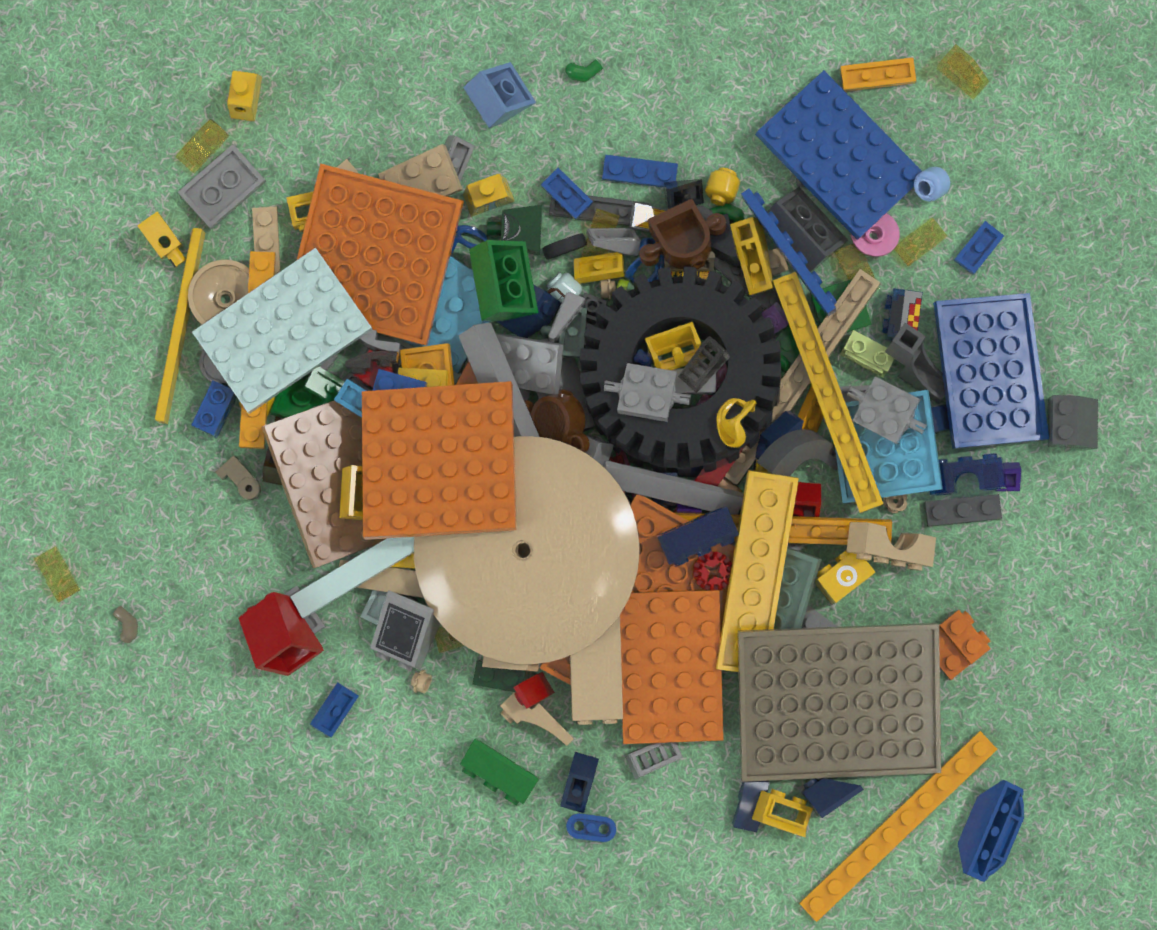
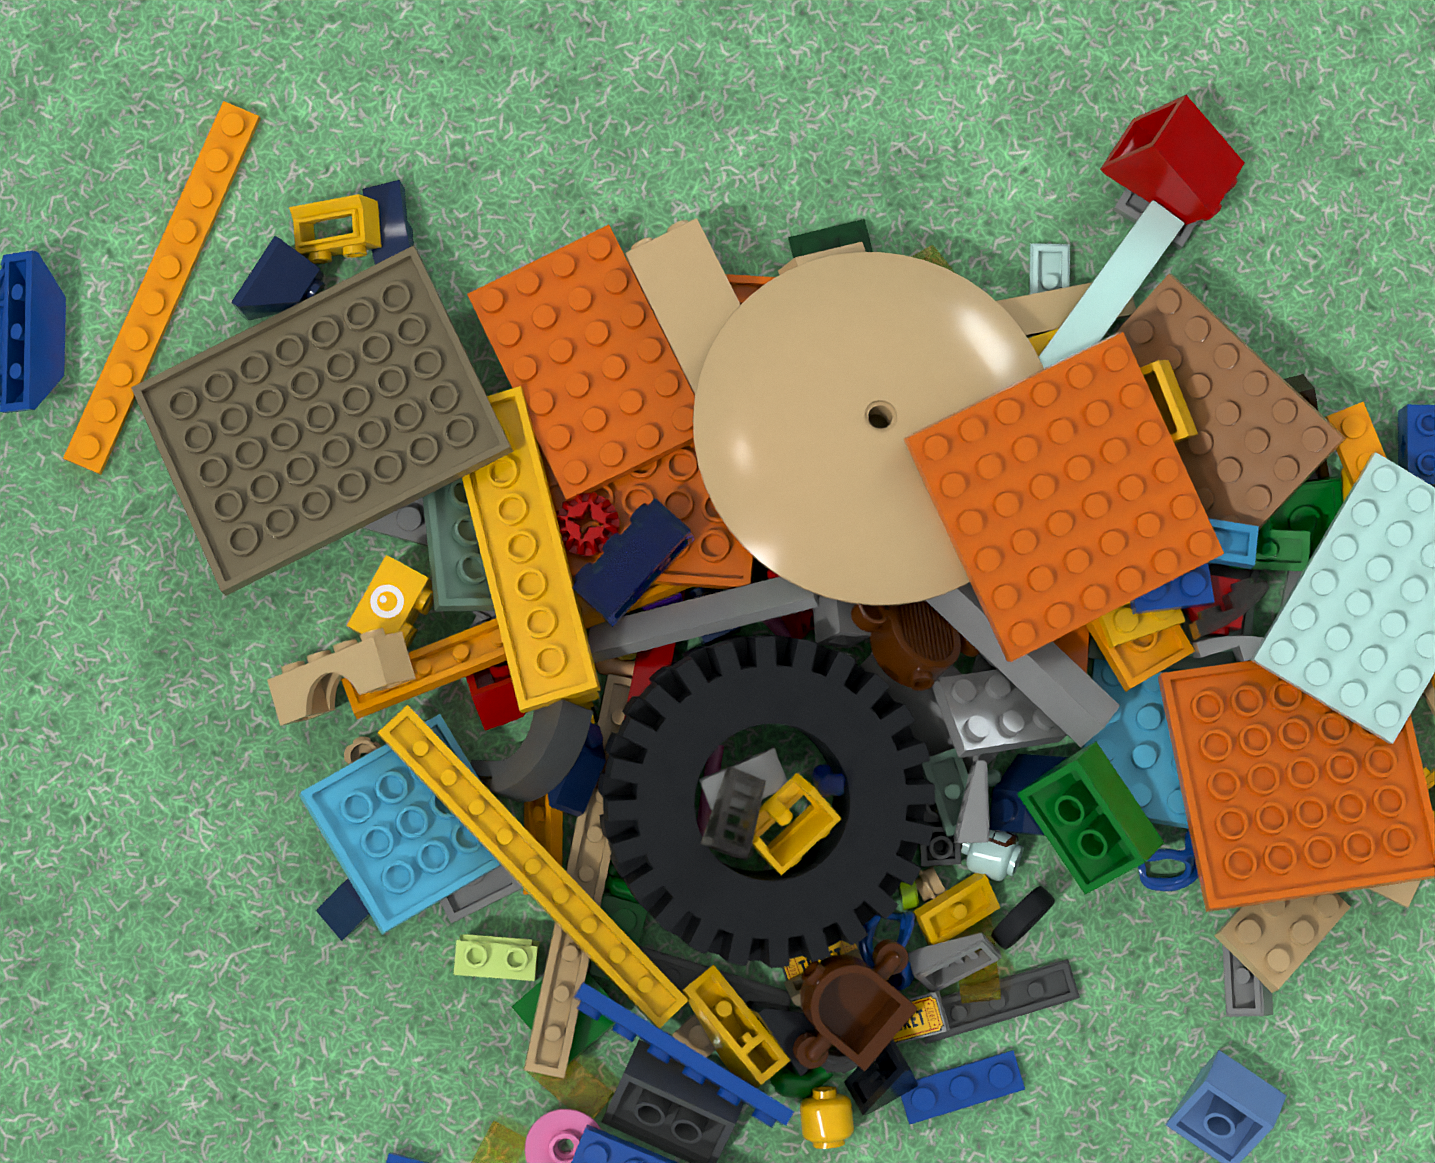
camera: 150 degrees right, 0 degrees up
(129, 624) = (1394, 89): dark tan arm -> none
(247, 485) = (1336, 367): dark tan leg -> none
(334, 709) = (1045, 96): blue plate -> none
(404, 631) = (997, 245): slope -> none
(418, 681) = (942, 189): tan plate -> none
(487, 194) = (1171, 948): yellow torso -> none
(498, 772) = (769, 111): green slope -> none
(519, 225) = (1102, 917): dark green torso -> none
(533, 690) = (772, 243): red slope -> none
(538, 715) = (782, 209): tan slope -> none
(566, 193) = (1056, 1000): blue plate -> none
(579, 782) = (648, 148): dark blue slope -> none
(591, 827) = (601, 89): blue plate -> none
(634, 765) = (567, 197): light grey slope -> none
(647, 392) = (801, 732): light grey plate -> none
(731, 430) = (651, 725): yellow piece -> none
(777, 316) = (662, 948): medium lavender plate -> none
(886, 410) = (432, 875): light grey plate -> none
(903, 308) = (470, 1040): brick -> none
(918, 370) = (414, 967): dark grey arch -> none
(960, 643) = (181, 586): orange plate -> none
(963, 510) = (257, 787): dark grey plate -> none
(988, 470) = (242, 856): clear blue arch -> none
(991, 370) = (302, 1014): plate -> none
(1013, 476) = (212, 867): dark purple slope -> none
(1072, 422) = (147, 990): dark grey slope -> none

